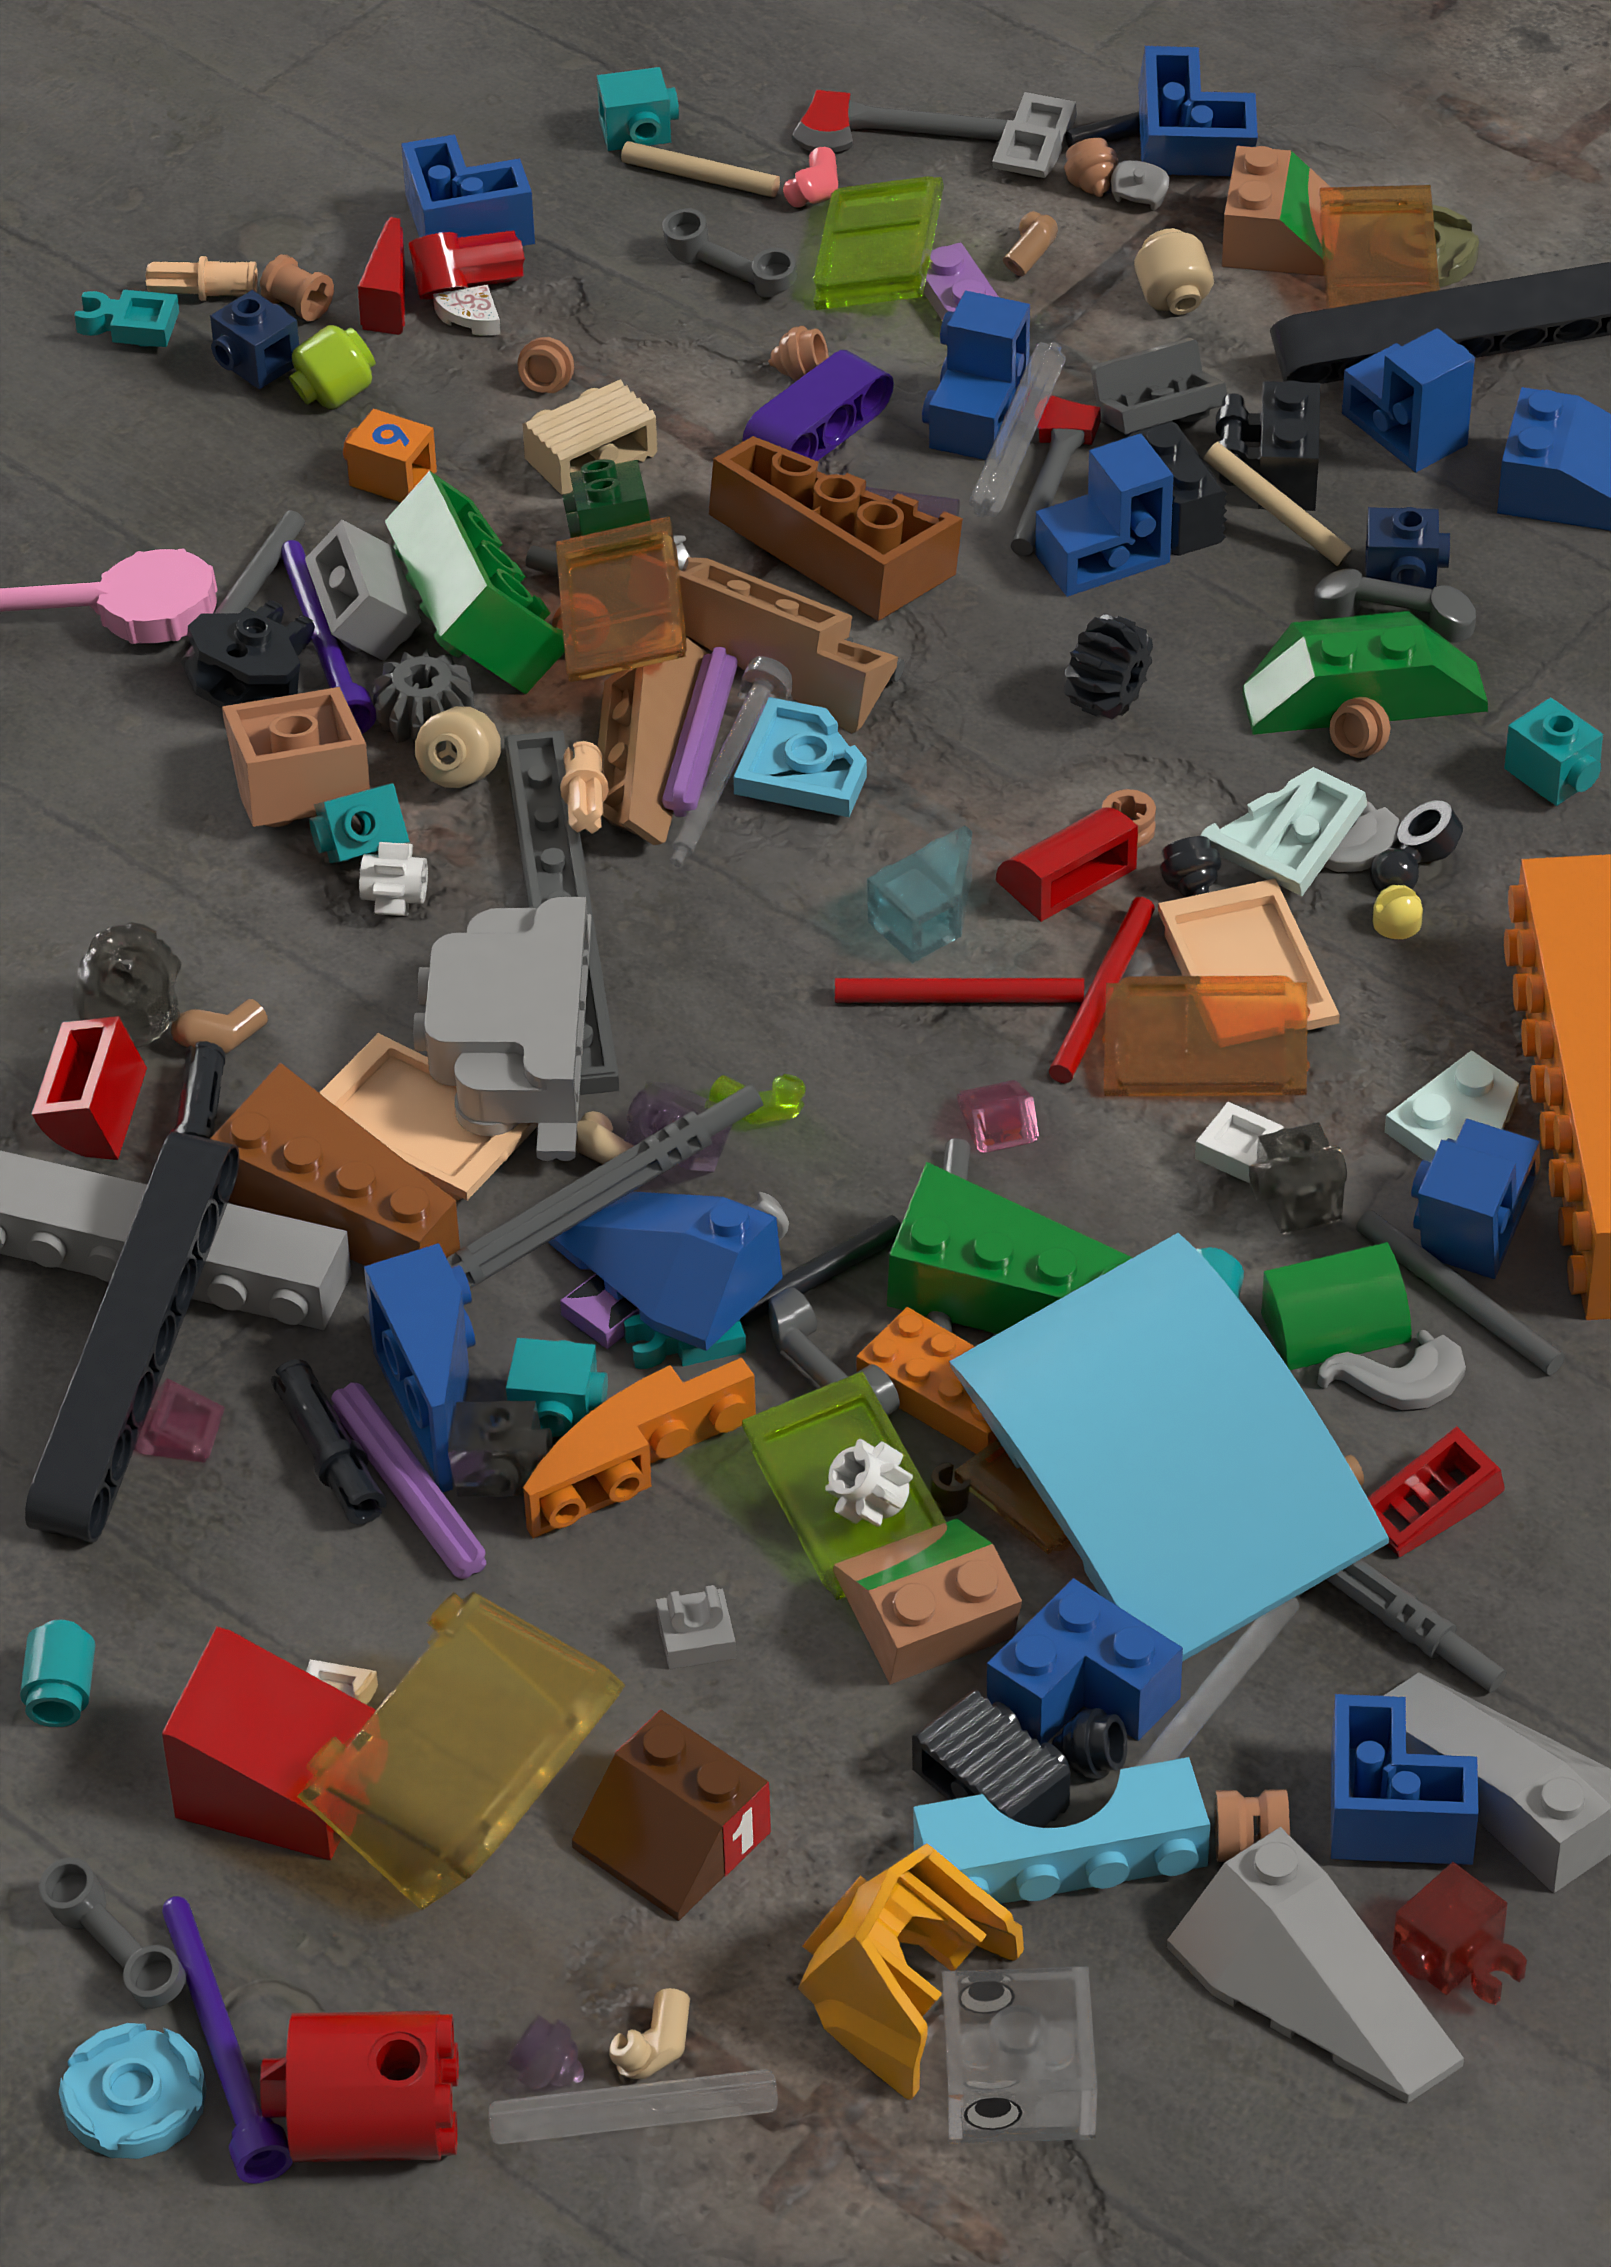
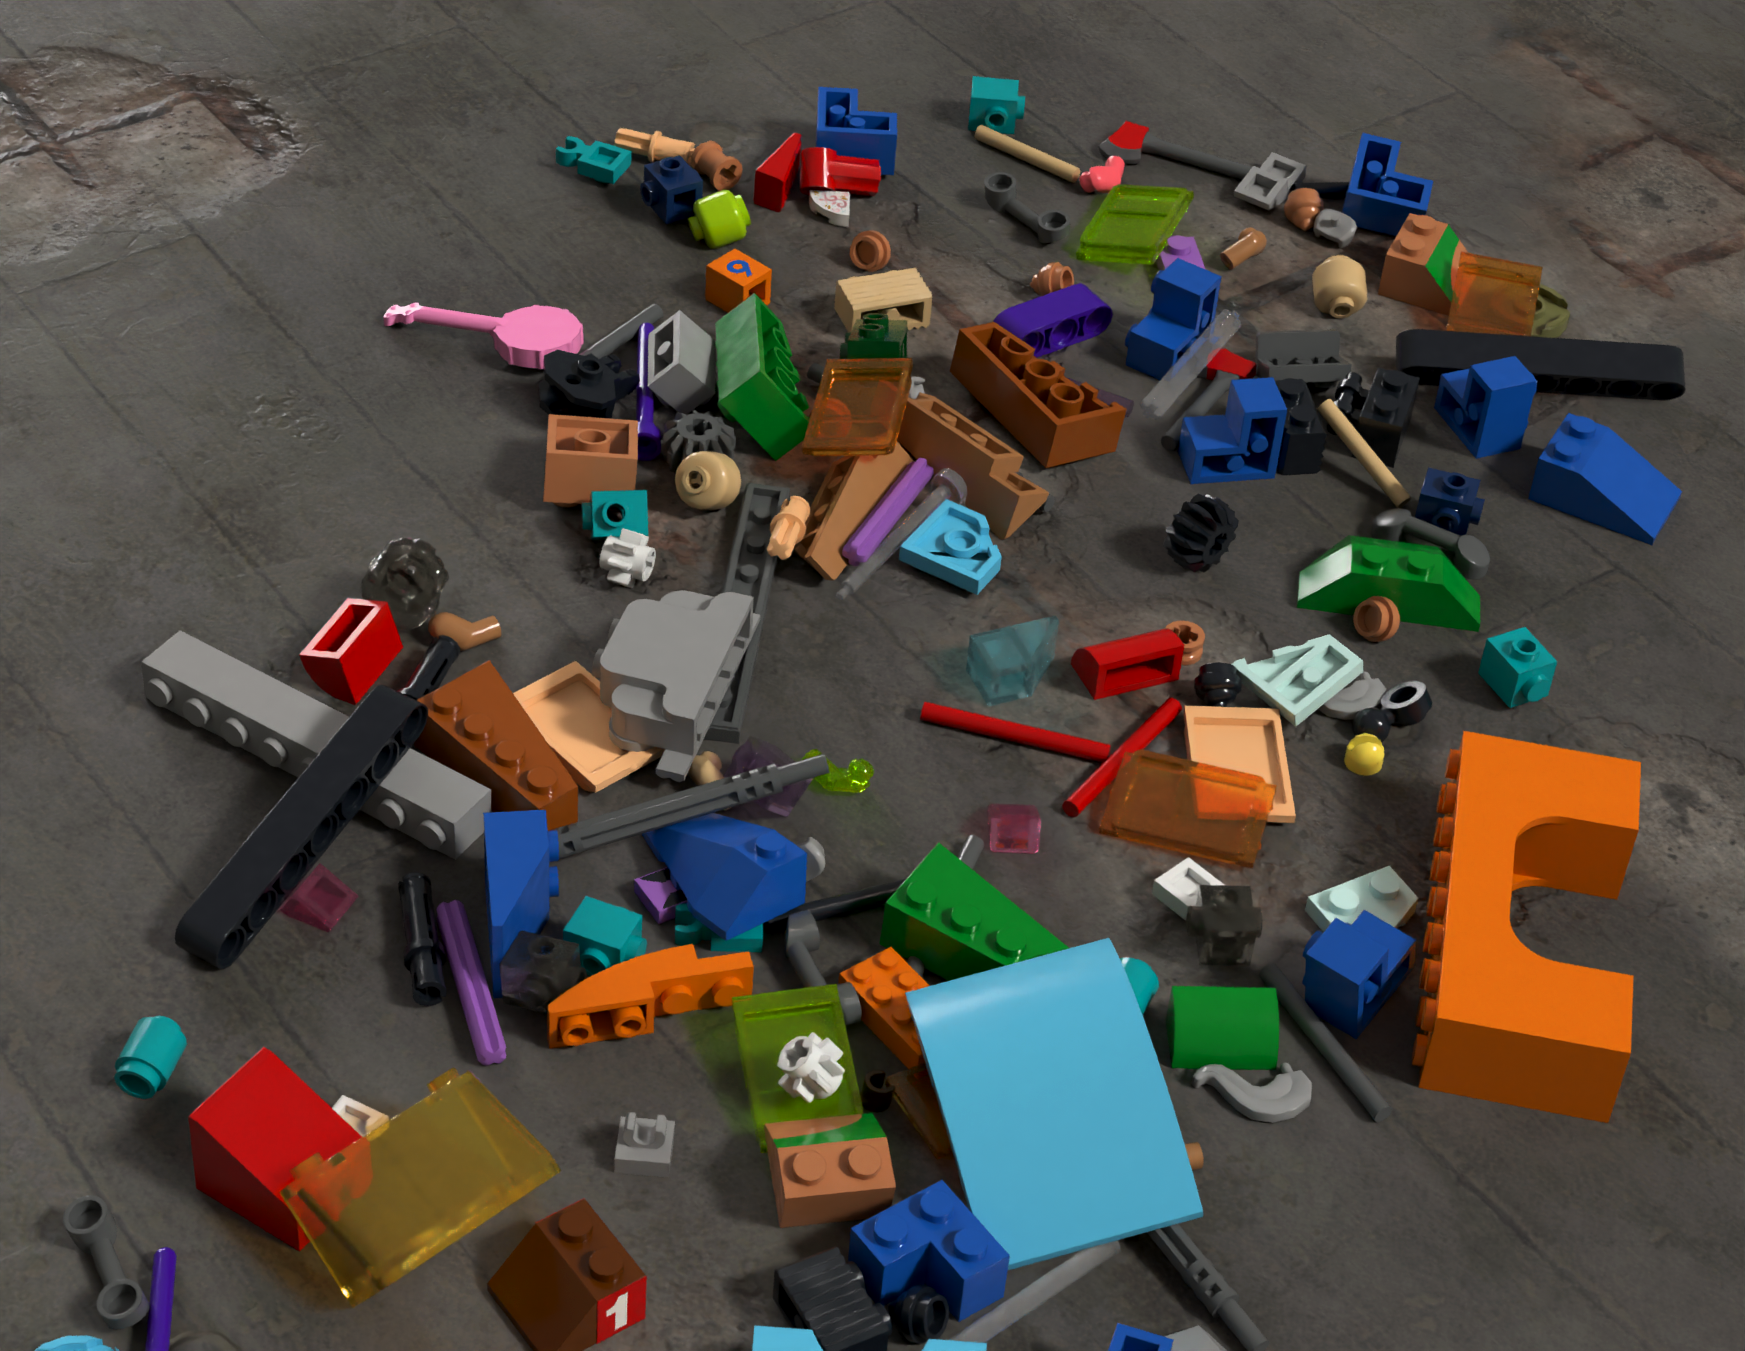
camera: 10 degrees right, 5 degrees down
(1449, 1453) = (1260, 1167): red slope -> none

